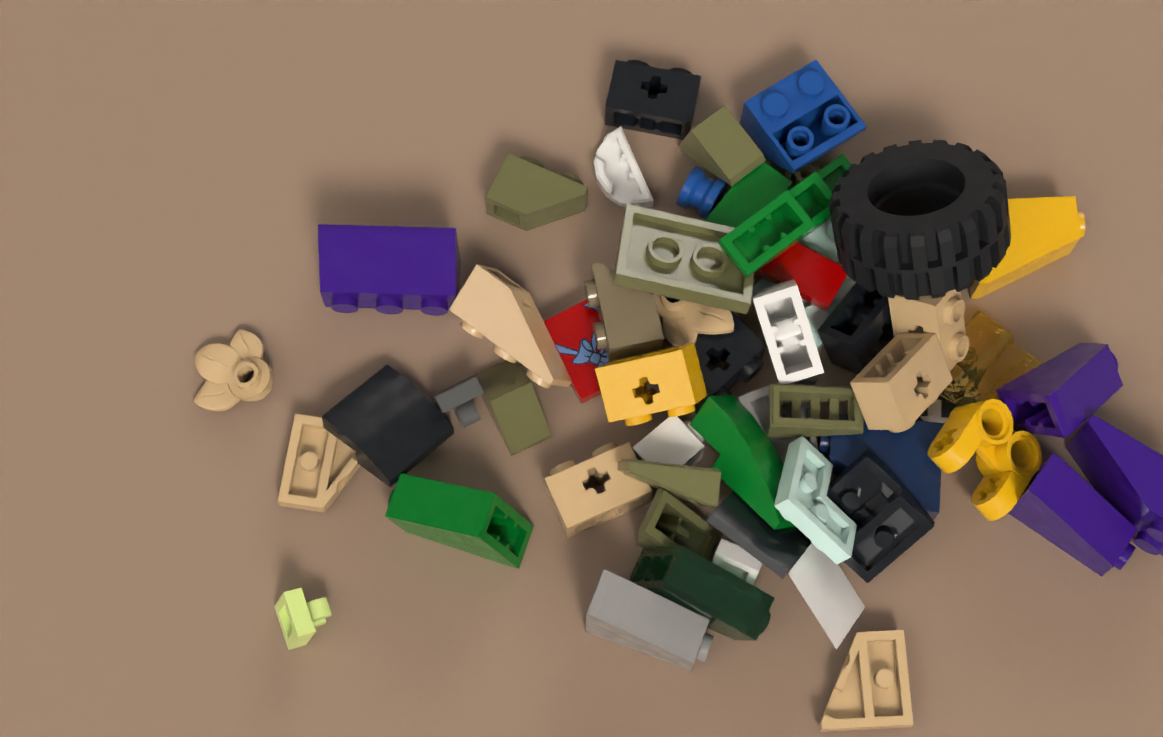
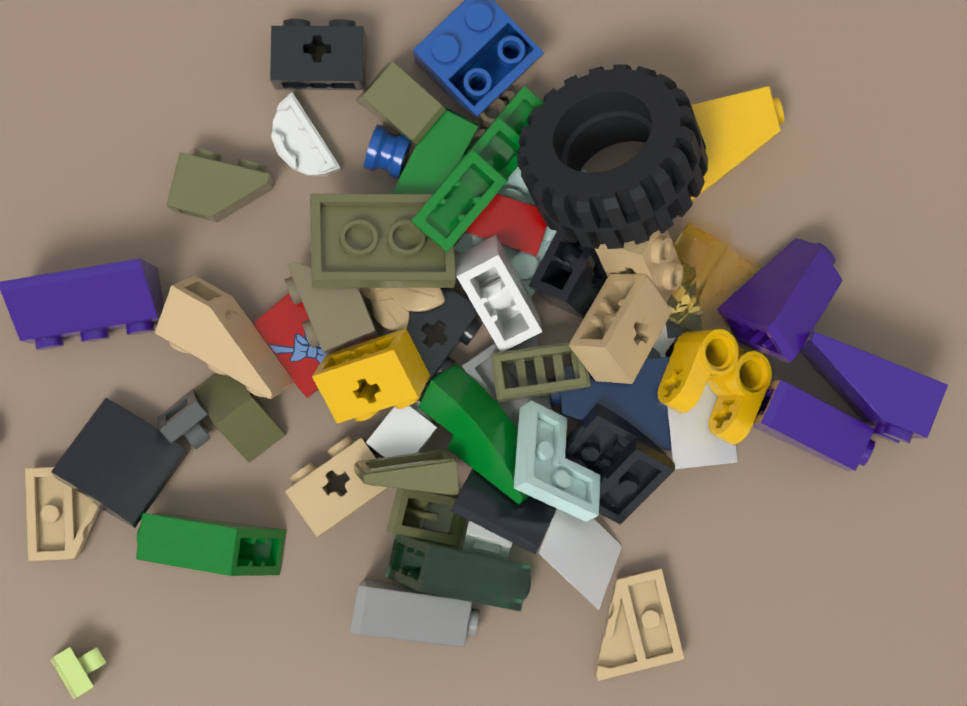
camera: 10 degrees left, 15 degrees up
(953, 506) = (691, 439): none -> white sticker

